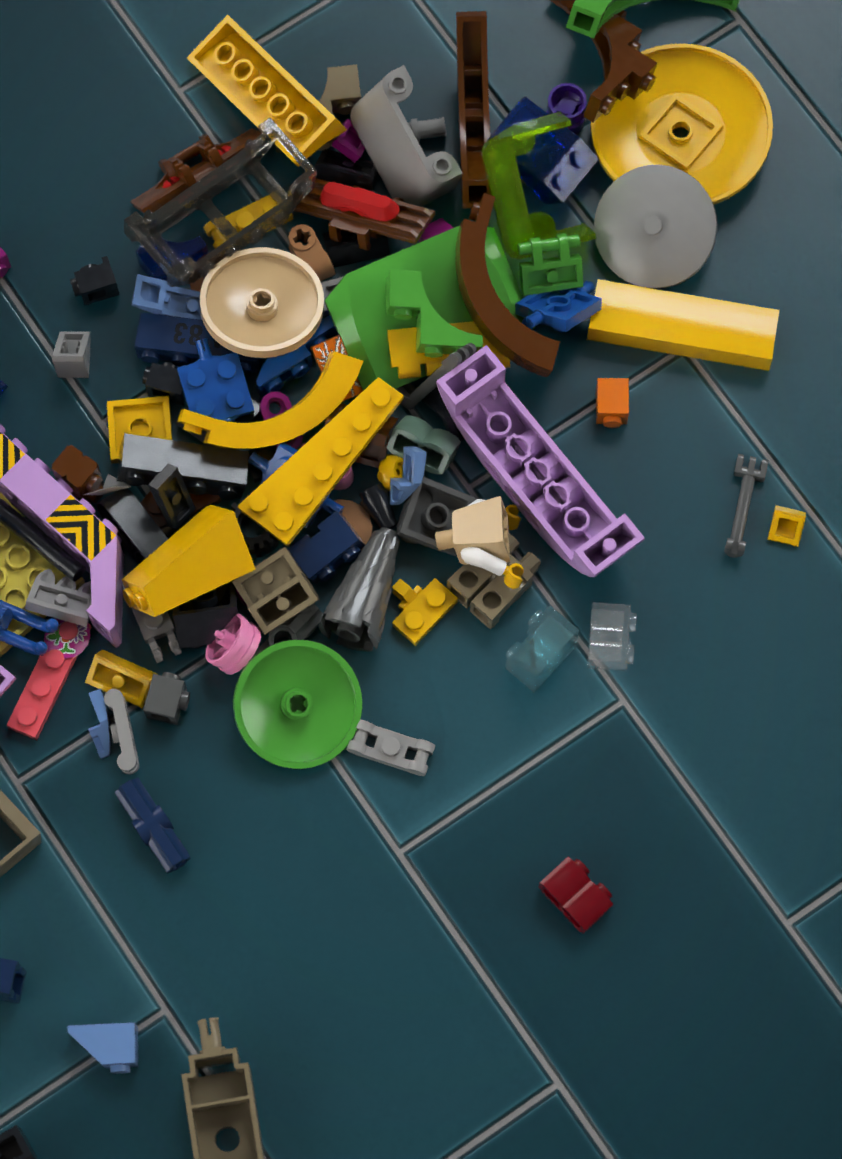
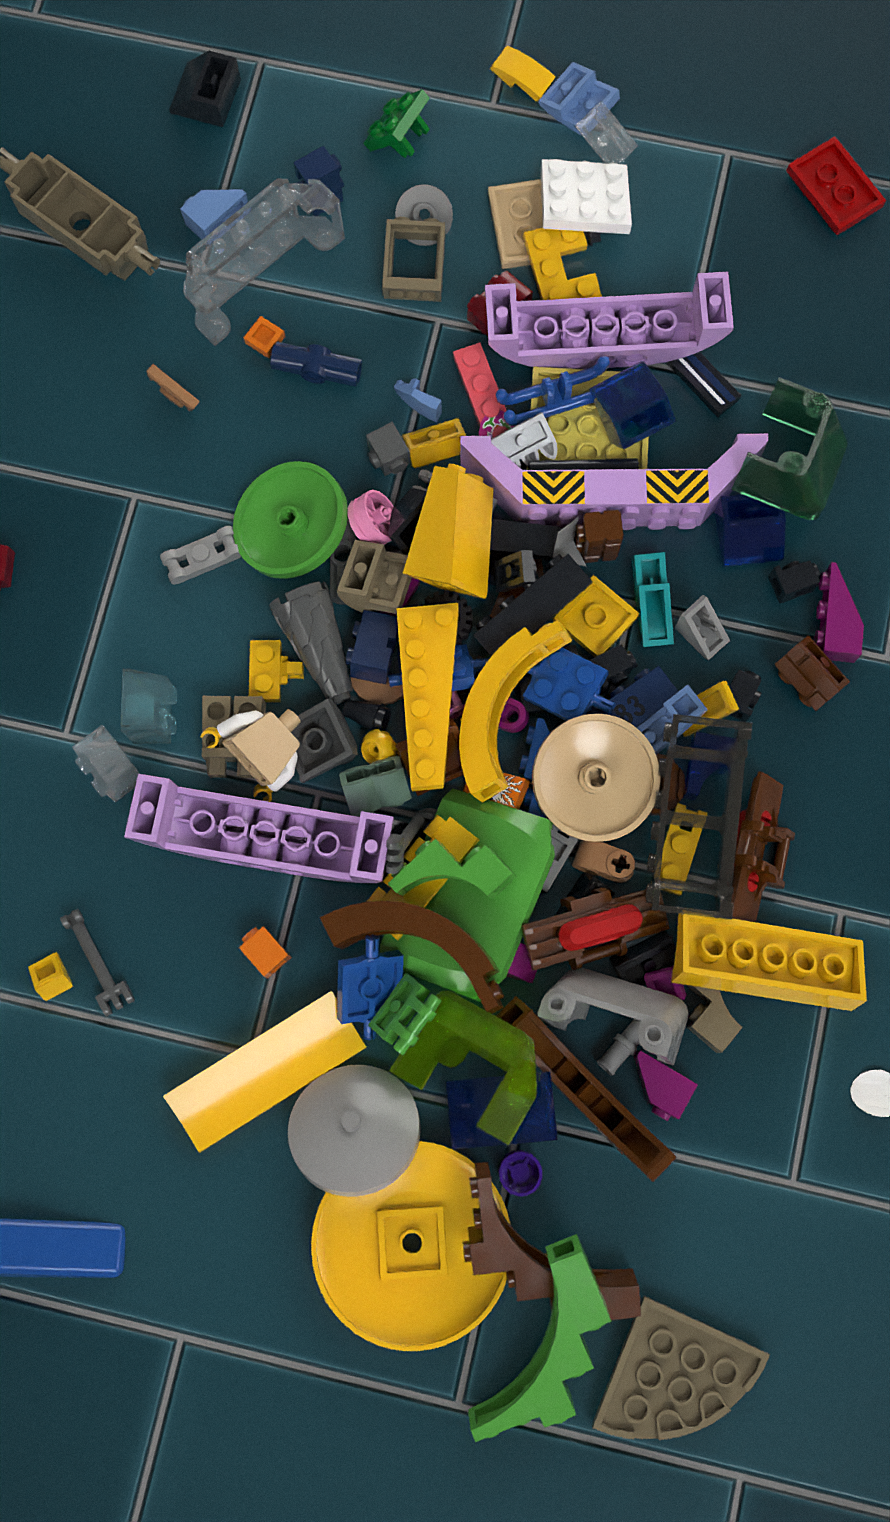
camera: 140 degrees right, 5 degrees up
(31, 249) = (811, 673): none -> reddish brown brick
(84, 406) = (652, 599): none -> teal slope
(116, 963) = (254, 241): none -> clear windscreen
(120, 285) = (719, 703): none -> yellow tile
(122, 731) = (395, 402): light grey plate -> none
(171, 889) = (263, 336): none -> orange plate
(288, 902) = (172, 389): none -> medium nougat tile
(413, 471) = (356, 746): medium blue slope -> none
(424, 78) = (663, 1087): none -> magenta slope

